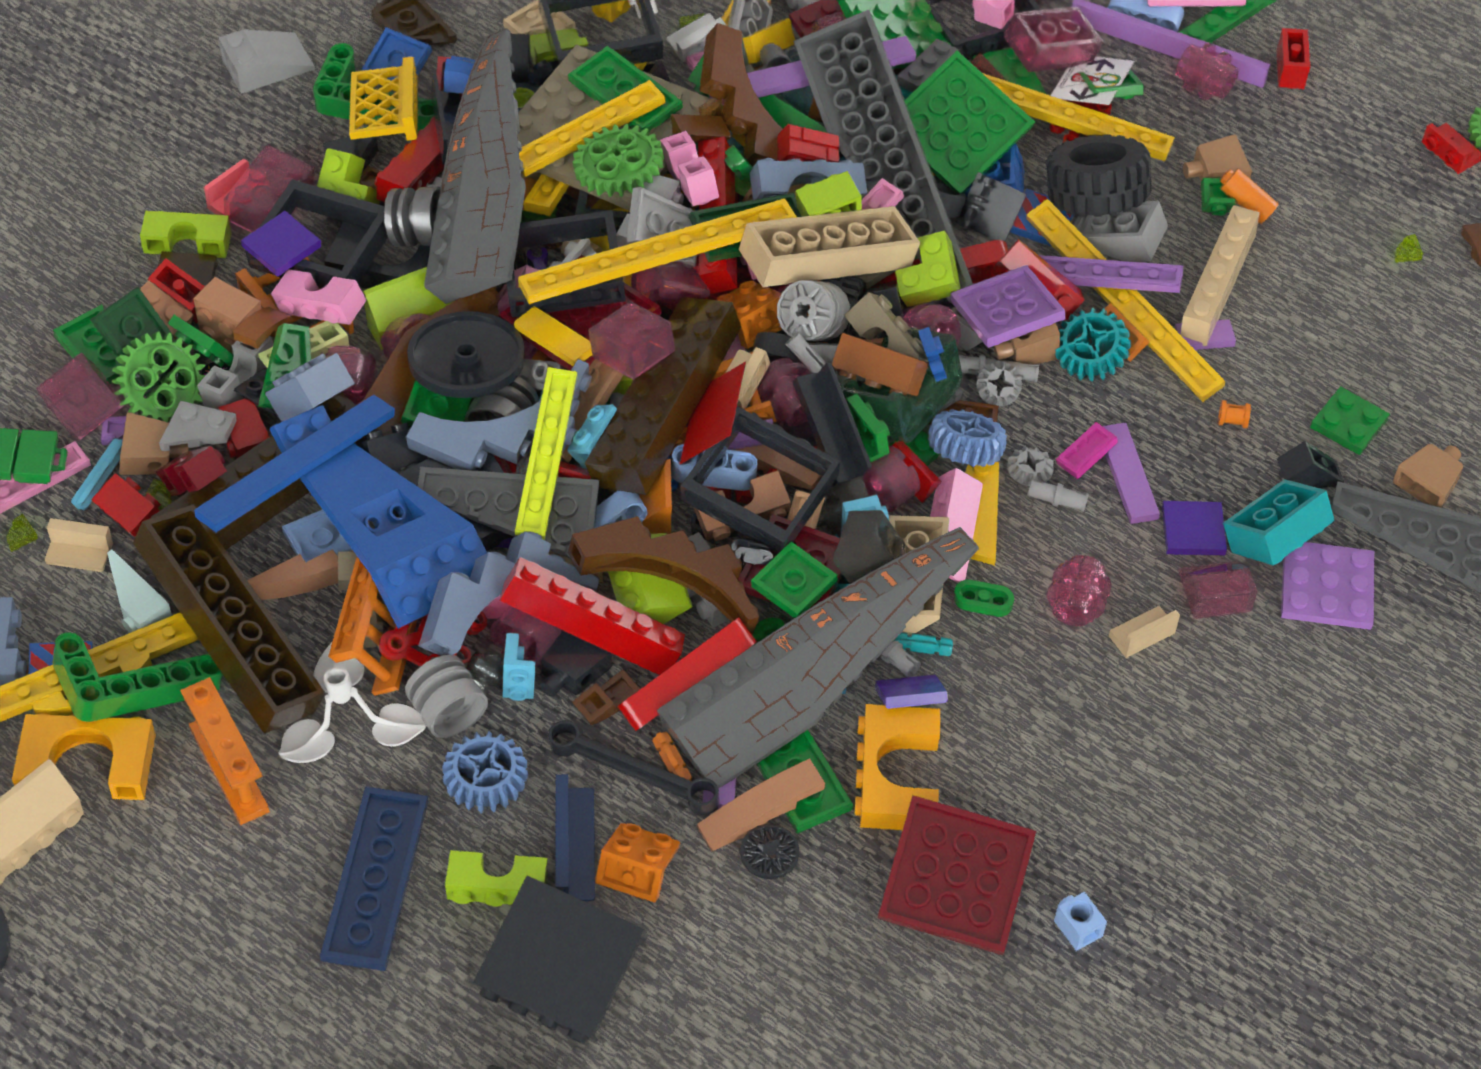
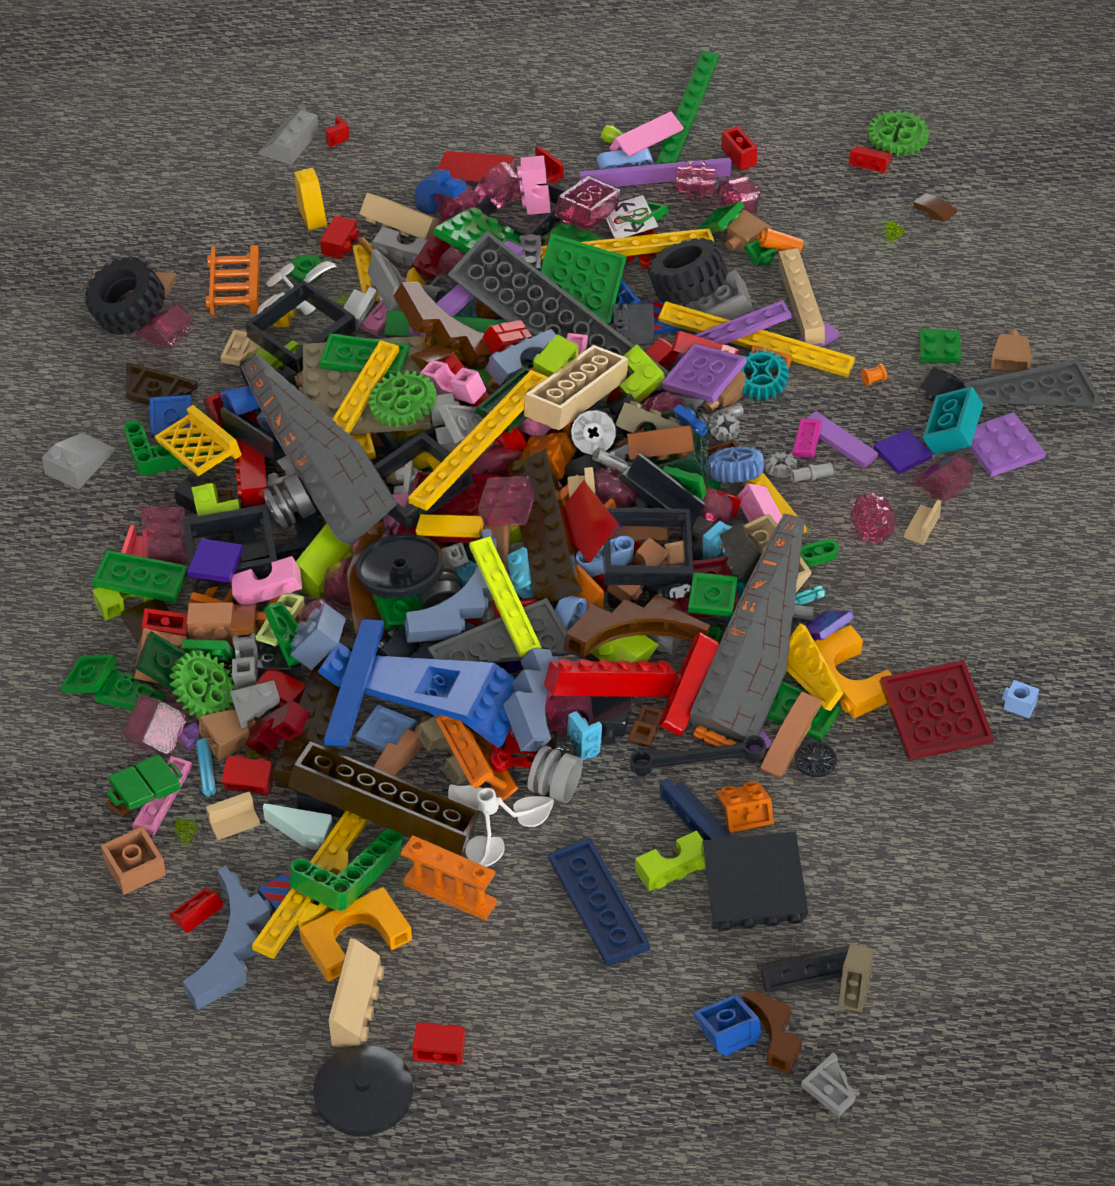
camera: 30 degrees left, 5 degrees down
(61, 939) = (439, 1043): none -> red brick
(67, 302) = (89, 674): none -> green plate
(202, 220) = (140, 576): none -> green tile
(480, 757) = (601, 815): medium blue gear -> none
(738, 163) = (475, 363): green plate -> none
(846, 736) = (810, 668): none -> yellow wing
(1191, 134) = (721, 217): none -> green plate
(1243, 115) = (739, 189): none -> clear pink brick

